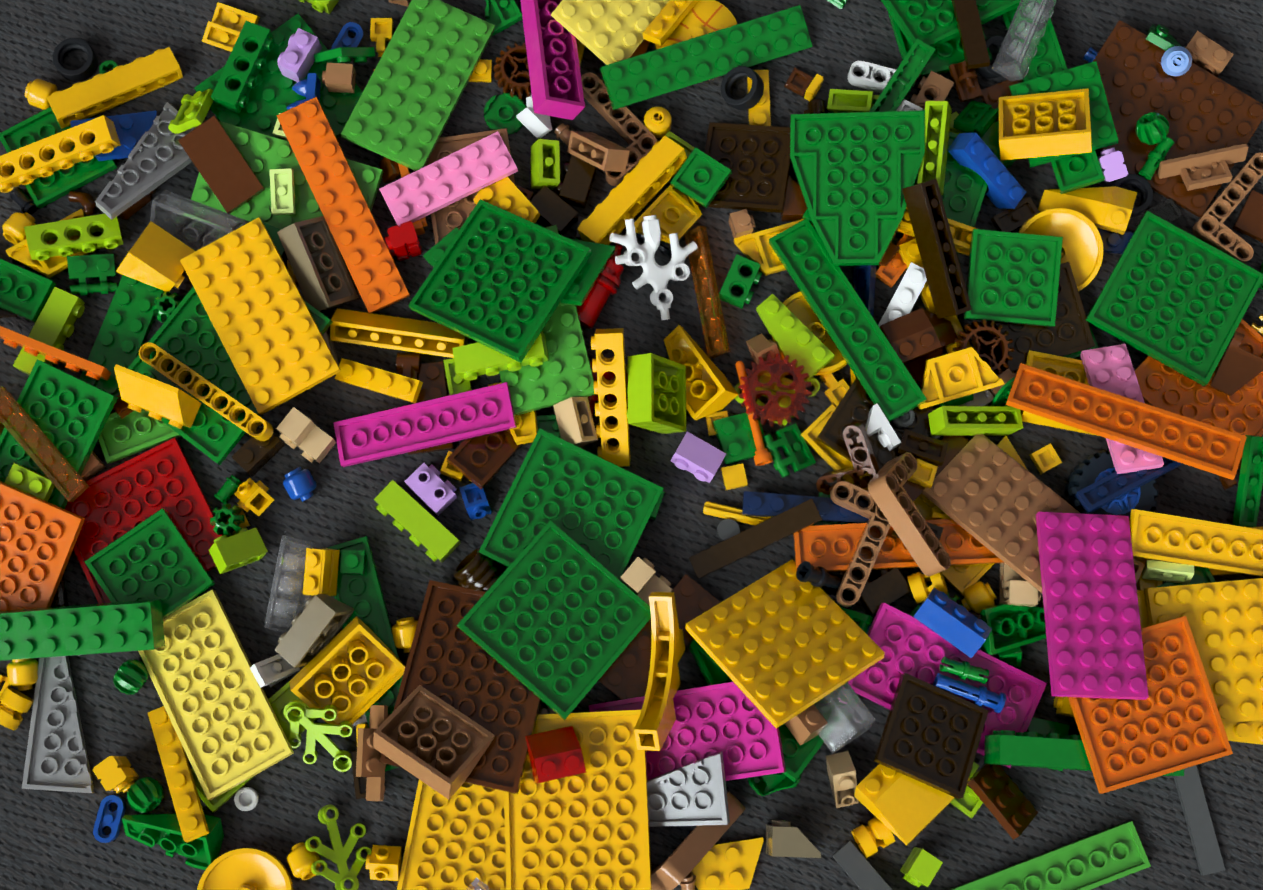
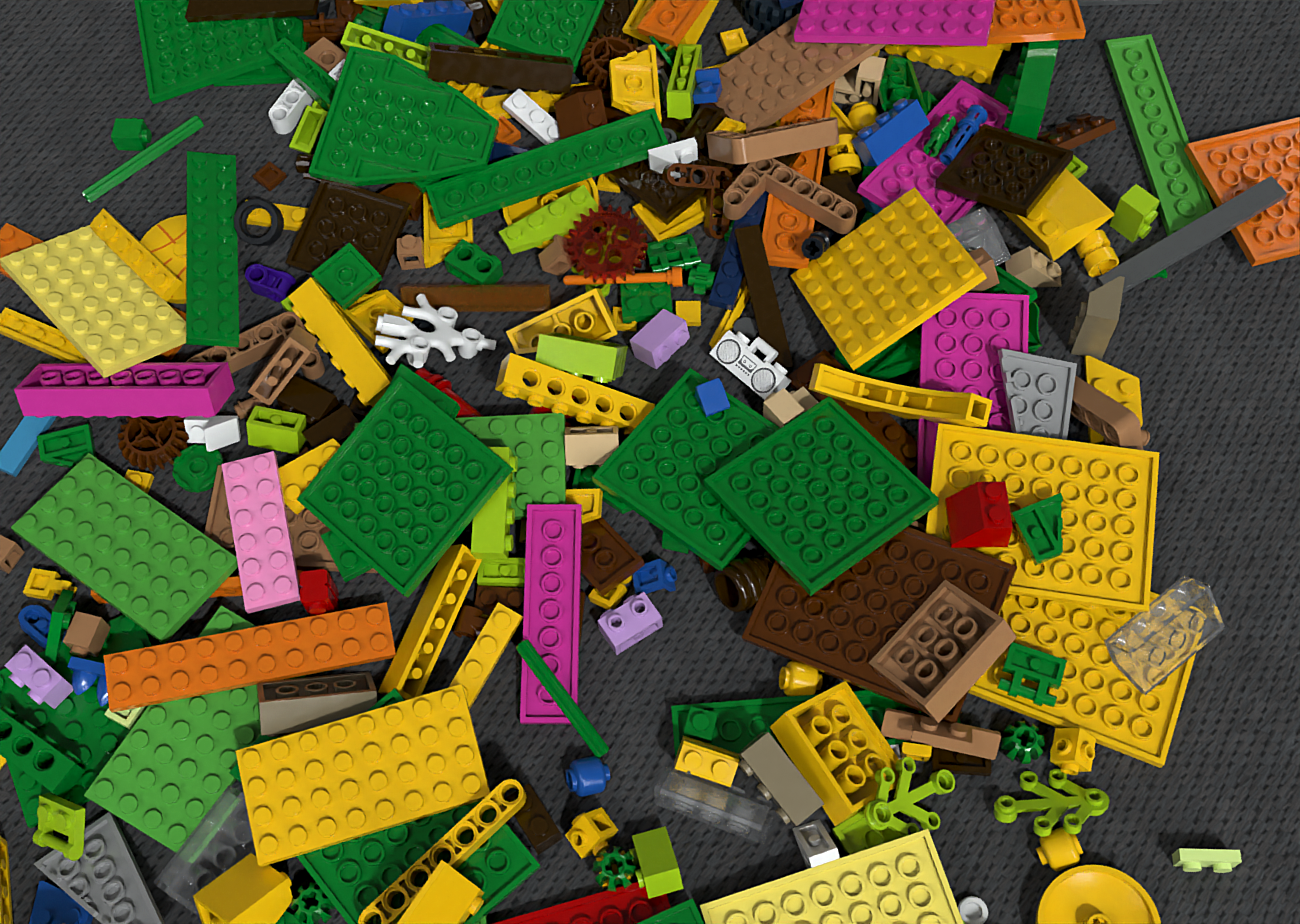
camera: 70 degrees left, 15 degrees down
(221, 164) = (146, 796): reddish brown tile -> none
(228, 489) = (572, 868): green pin -> none
(282, 191) = (209, 725): yellowish green plate -> none
(302, 433) = (530, 755): tan brick -> none
(354, 449) = (562, 698): none -> green axle
(380, 826) = (1013, 743): none -> green piece
(390, 169) = (219, 598): reddish brown tile -> none
(417, 521) = (665, 646): lime brick -> none
(445, 822) = (1034, 666): none -> green plate
(558, 811) = (1041, 528): none -> green wing
(633, 512) = (712, 397): none -> blue slope
(658, 121) = (265, 307): yellow head -> none
(686, 118) = (273, 283): none -> dark purple piece
(687, 541) = (740, 359): none -> white piece
(768, 481) = (701, 278): none -> green gear
(814, 87) = (282, 160): yellow tile -> none
(836, 389) = (617, 198): yellow plate -> none
(966, 444) = (708, 86): none -> blue bracket

